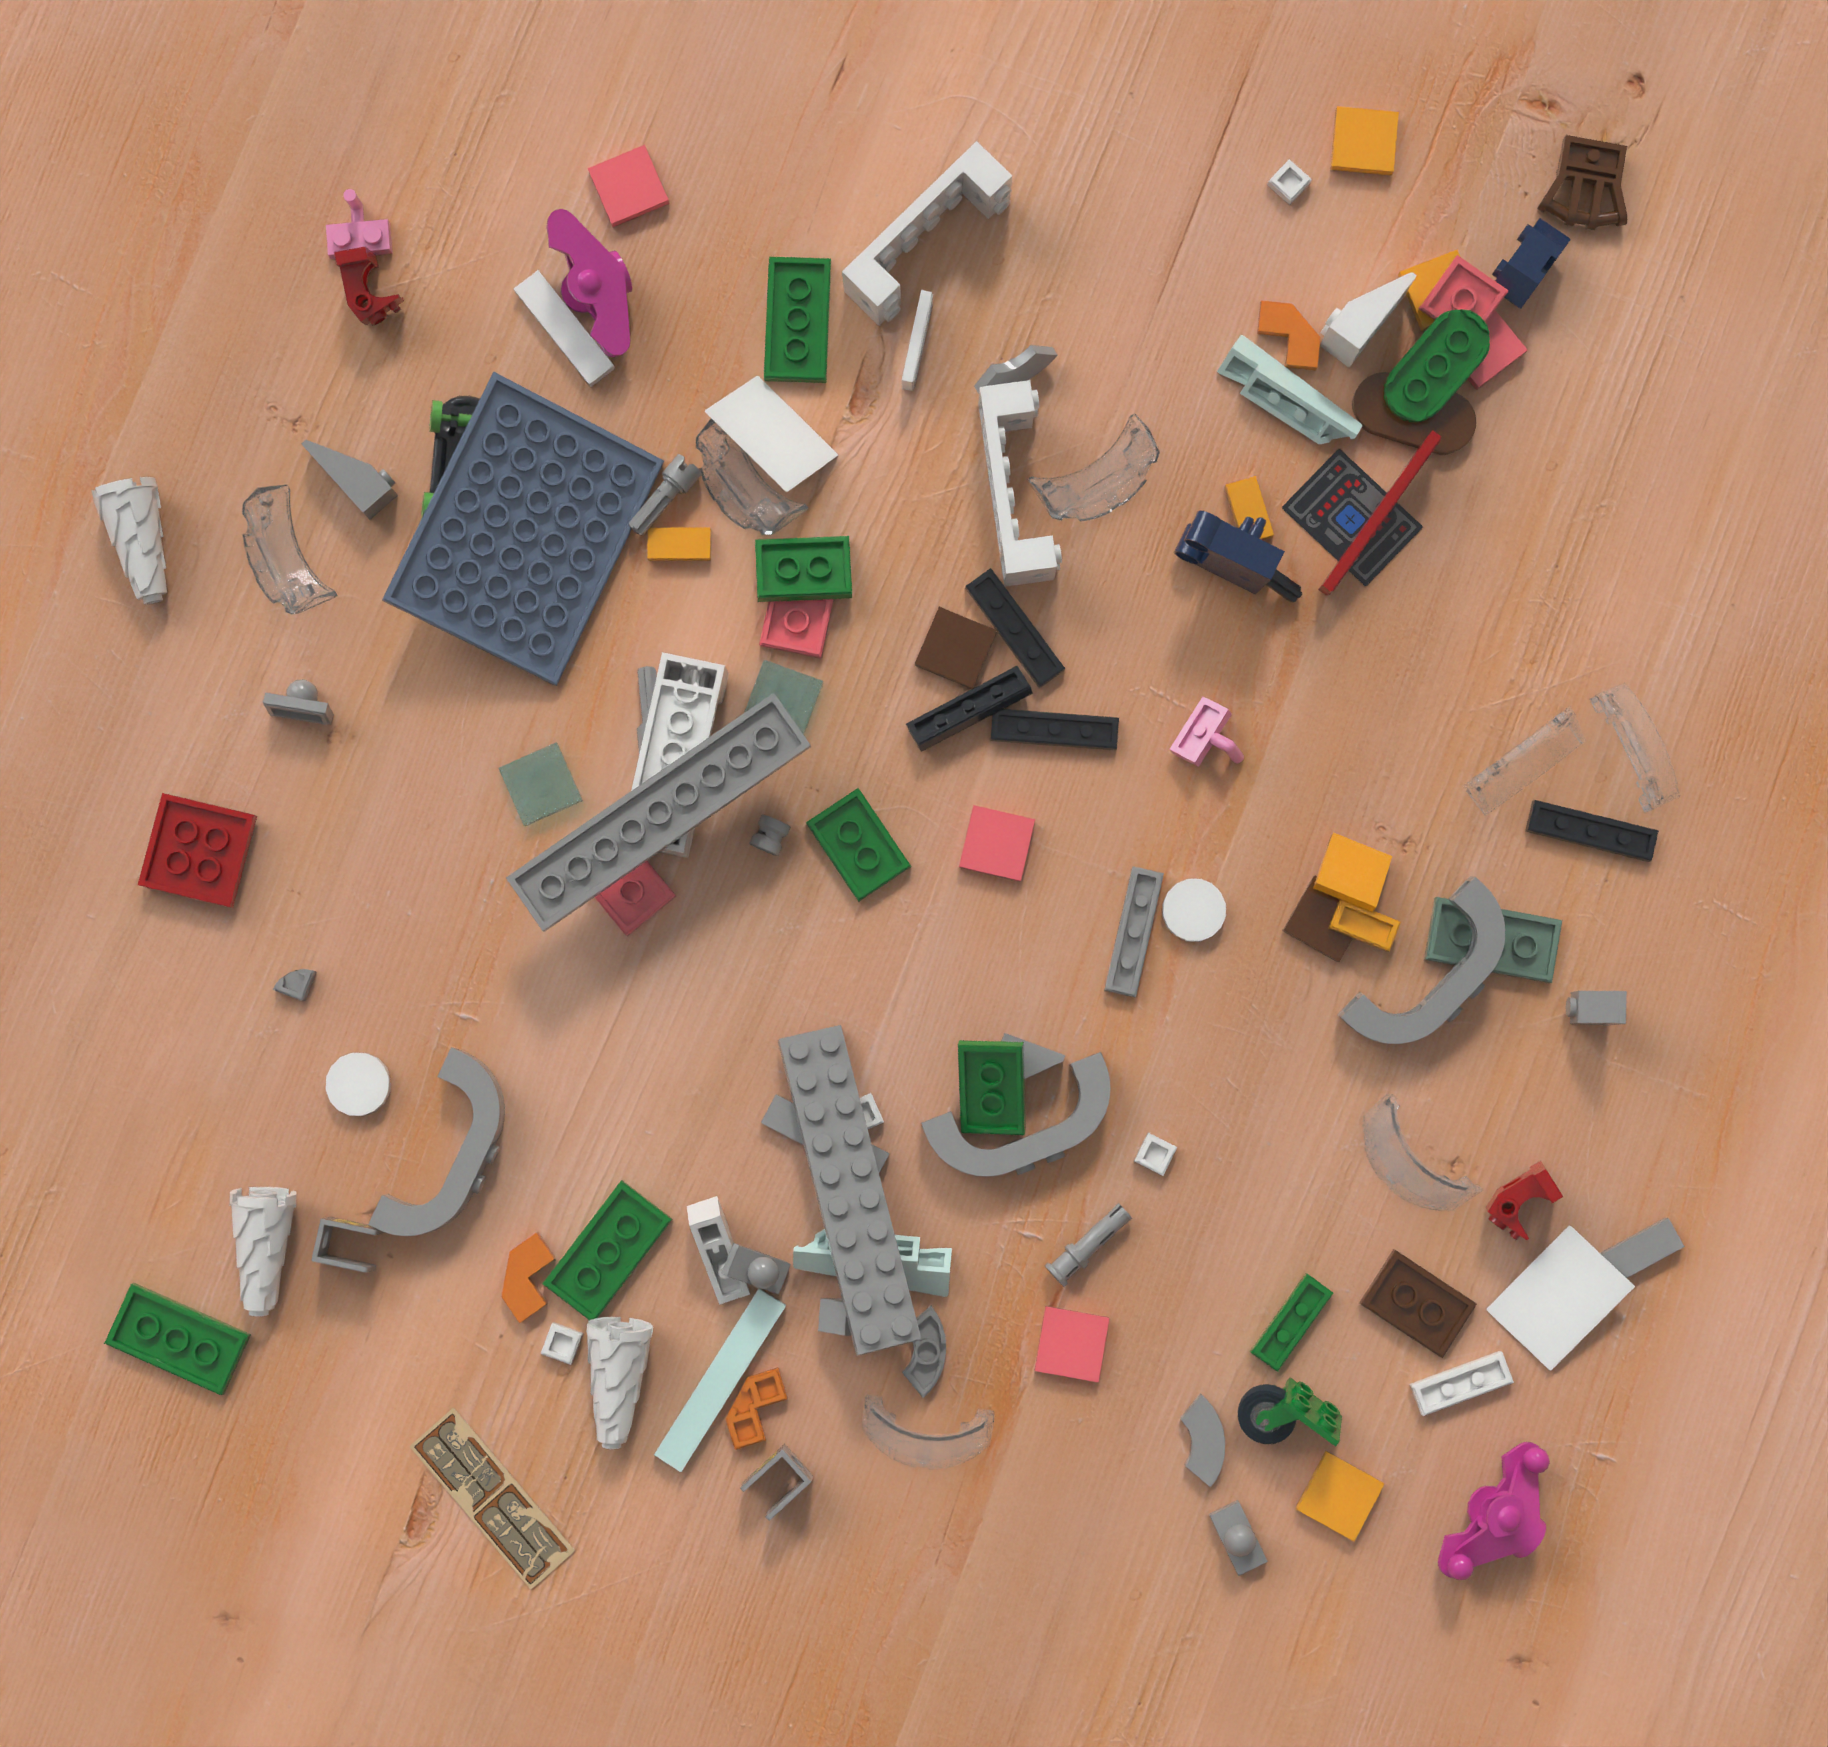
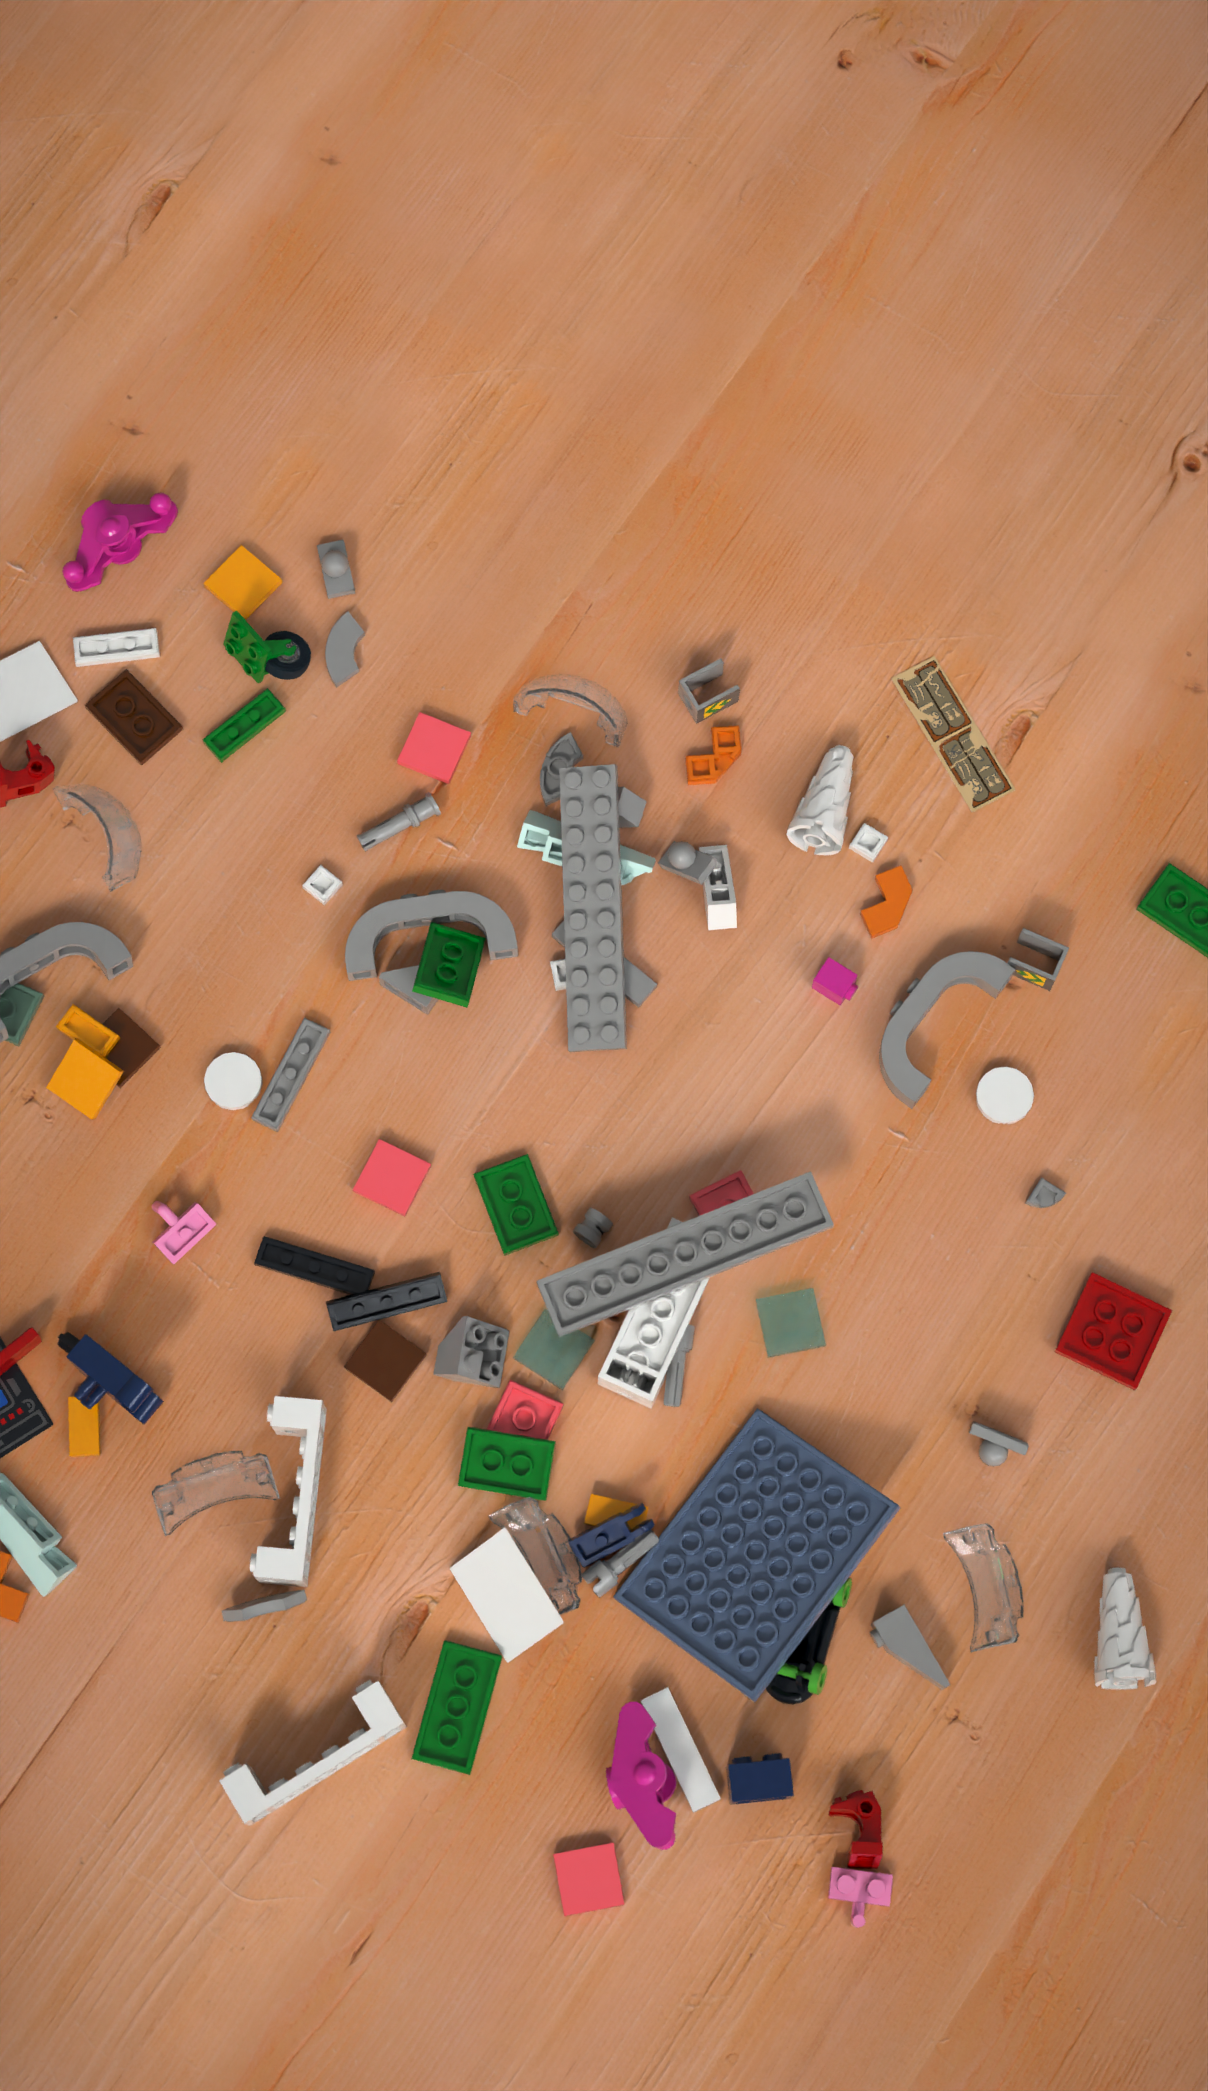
camera: 170 degrees left, 10 degrees down
(261, 1235) = (1109, 985): white cone -> none
(475, 307) = (759, 1780): none -> dark blue brick
(565, 1168) = (835, 982): none -> dark pink brick
(607, 1251) = (813, 908): green tile -> none
(678, 517) = (609, 1536): none -> dark blue hinge
(720, 1380) = (739, 783): light aqua tile -> none
(864, 671) = (473, 1353): none -> light grey slope
(917, 340) = (348, 1656): white tile -> none
(1015, 628) = (326, 1367): black tile -> none

